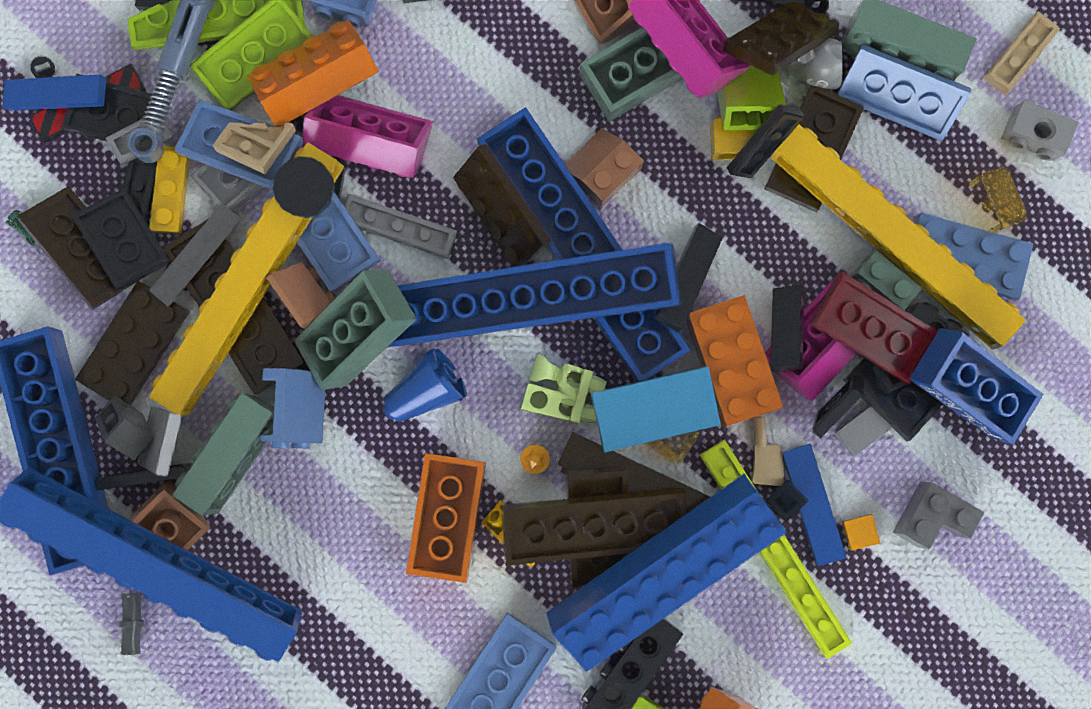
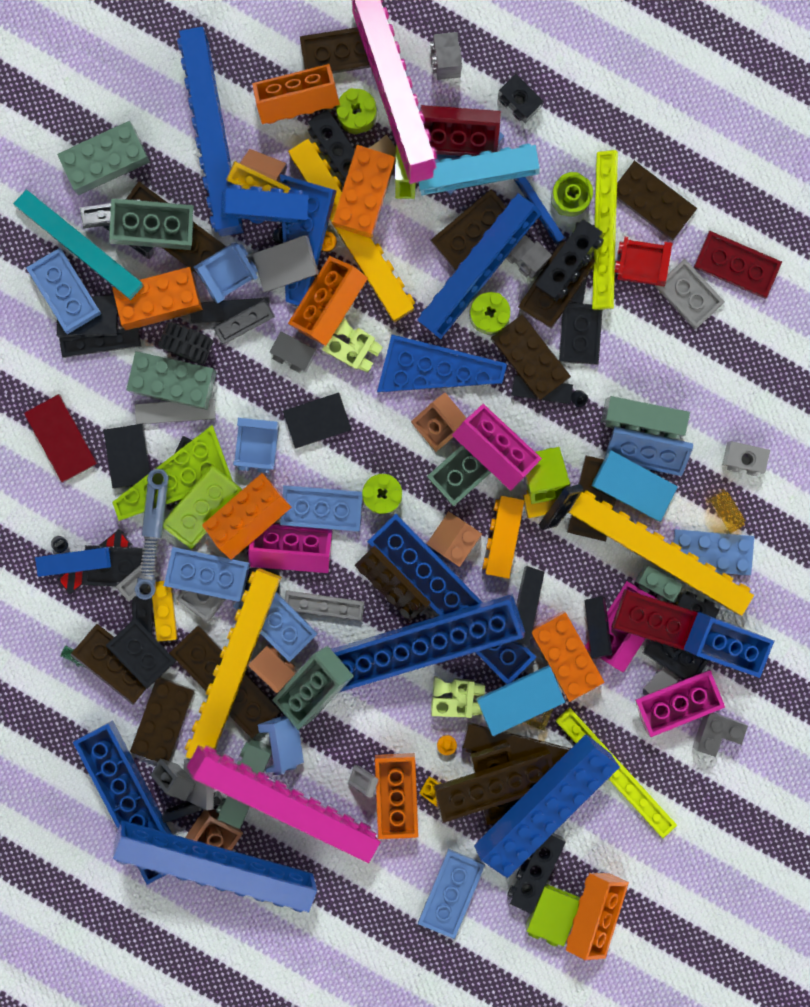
camera: 10 degrees left, 5 degrees up
(131, 623) = (203, 904): dark grey pin -> none
(195, 254) = (192, 653): flat silver sticker -> none
(254, 143) = (219, 575): tan wing -> none
(271, 488) = (283, 804): none -> dark pink brick
(303, 187) = (260, 601): black tile -> none
(402, 485) = (363, 781): none -> light grey tile
(423, 88) = (322, 508): none -> medium blue plate
(425, 388) = (365, 713): blue cone -> none
(515, 66) = (382, 482): none -> lime brick
(674, 175) = (504, 536): none -> light orange brick
(768, 459) = (601, 714): tan piece -> none
(781, 37) = (559, 435): dark brown plate -> none
(787, 500) = (618, 740): black tile -> none
(817, 513) = (636, 739): blue tile -> none
(820, 66) = (588, 441): light grey piece -> none
(838, 405) = (640, 674): black tile -> none
(860, 532) = (671, 751): light orange tile -> none
(873, 138) = (634, 486): none -> dark azure tile
(887, 460) = (679, 703): none -> dark pink slope
(1021, 53) = (726, 403): tan tile -> none

